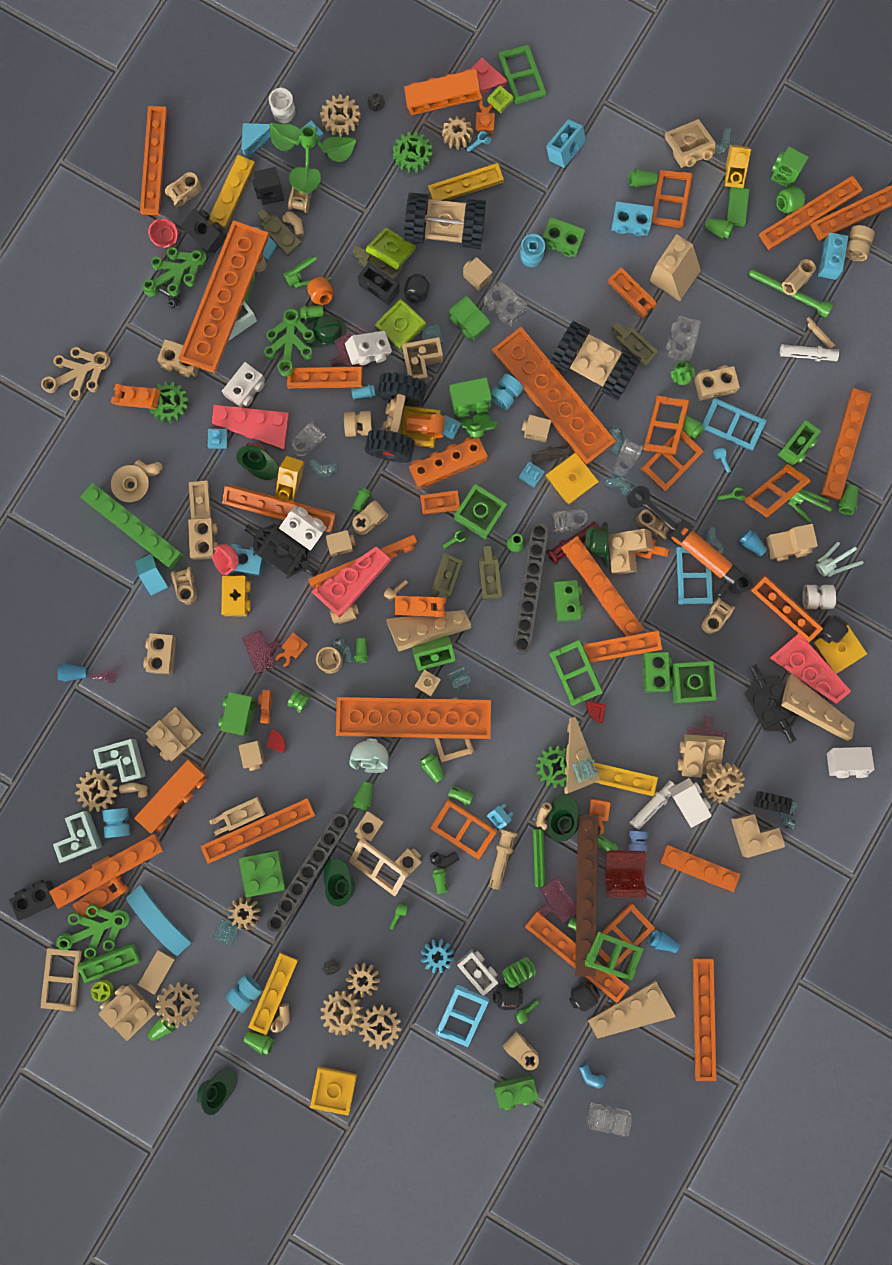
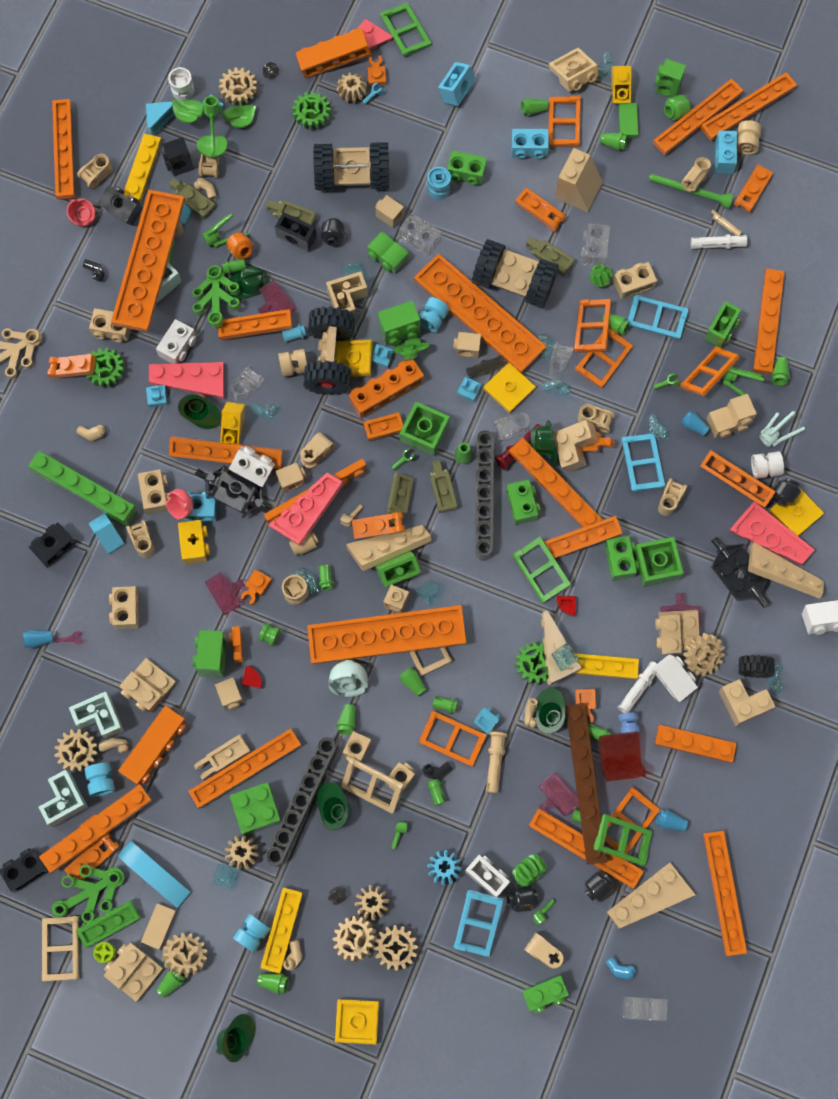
camera: 10 degrees left, 10 degrees down
(107, 579) = (62, 544): none -> black brick
(123, 477) = (72, 441): tan dish -> none
(175, 270) = (114, 234): bright green plant -> none
(199, 500) = (146, 454): tan plate -> none
(361, 500) = (306, 433): bright green pin -> none
(368, 348) = (293, 291): white brick -> none
(391, 248) = (303, 198): lime plate -> none
(400, 324) = (321, 266): lime plate -> none
(431, 426) = (365, 353): orange piece -> none
(466, 183) = (367, 131): yellow plate -> none
(500, 99) = (388, 52): lime tile -> none
(539, 857) = (532, 755): bright green axle -> none
(683, 534) = (639, 432): piece -> none
(720, 453) = (650, 345): medium azure hand -> none
(855, 298) = (753, 188): none -> orange plate

